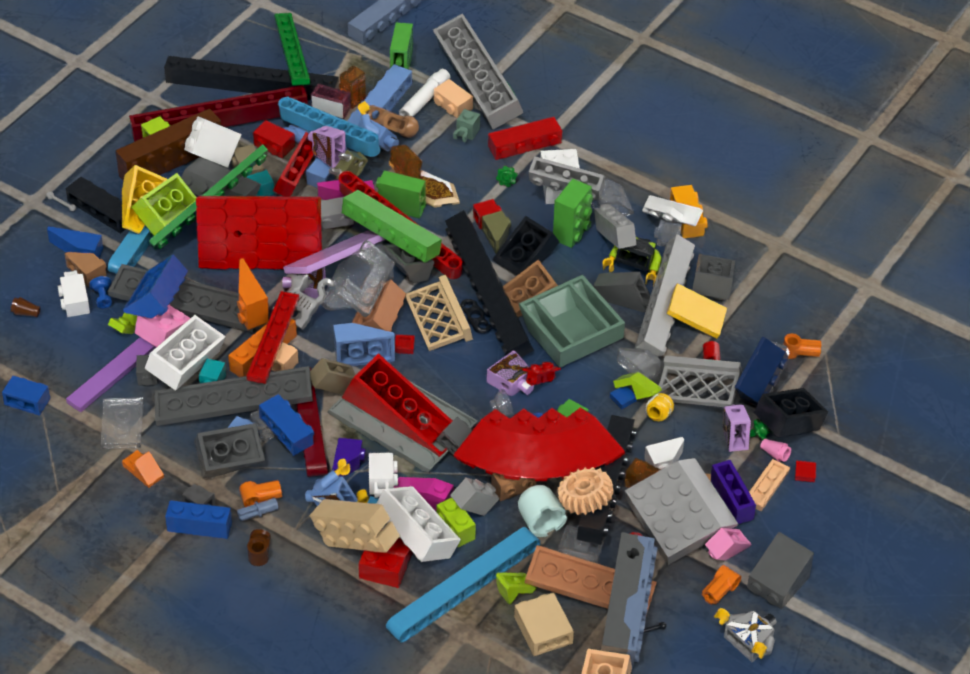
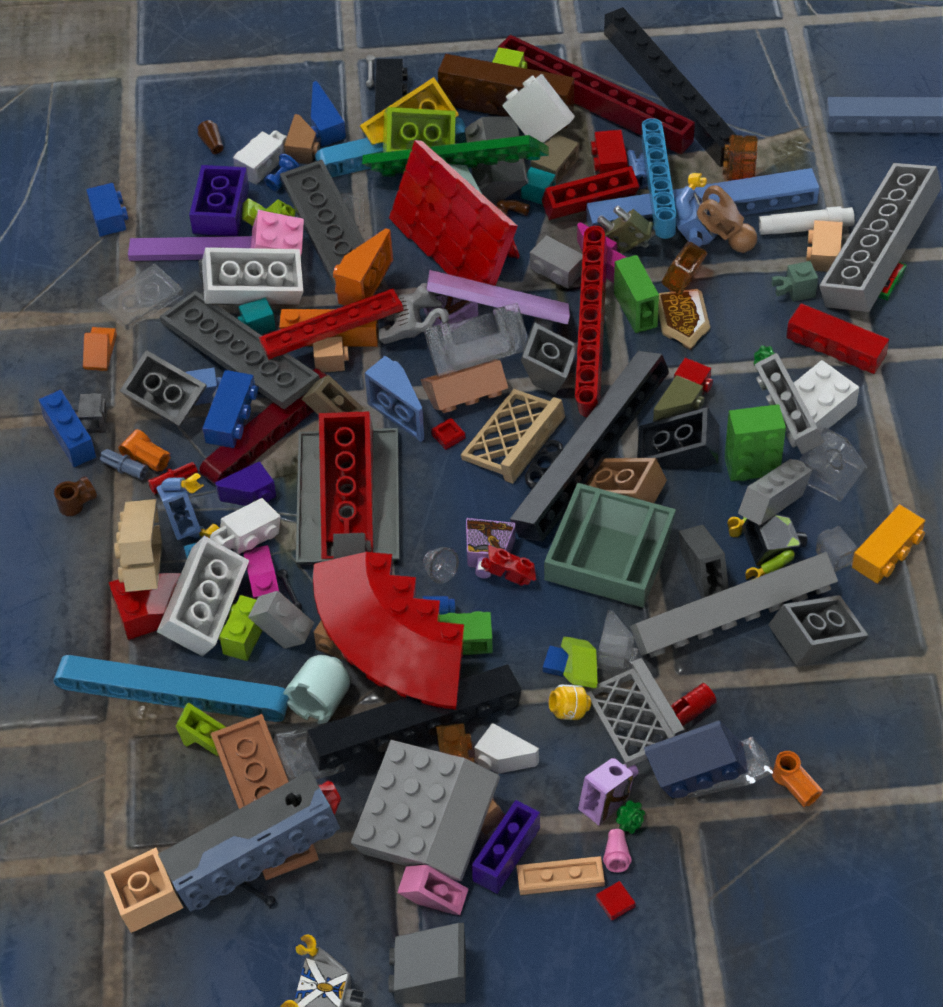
camera: 55 degrees right, 5 degrees up
(92, 333) = (219, 200): none -> dark purple brick
(157, 289) = (301, 201): blue slope -> none
(291, 49) = (738, 82): green tile -> none
(296, 492) = (181, 472): none -> red axle
(328, 144) = (627, 185): lavender torso -> none
(331, 100) = (706, 157): brick -> none
(391, 226) = (565, 311): bright green brick -> none
(402, 45) = (840, 159): bright green brick -> none
(543, 624) = (175, 790): tan brick -> none
(585, 491) = (354, 704): light nougat gear -> none
(672, 210) = (858, 524): white bracket -> none
(696, 311) = (742, 645): yellow tile -> none
(723, 581) = (377, 920): orange piece -> none
(790, 412) = (671, 827): black brick -> none

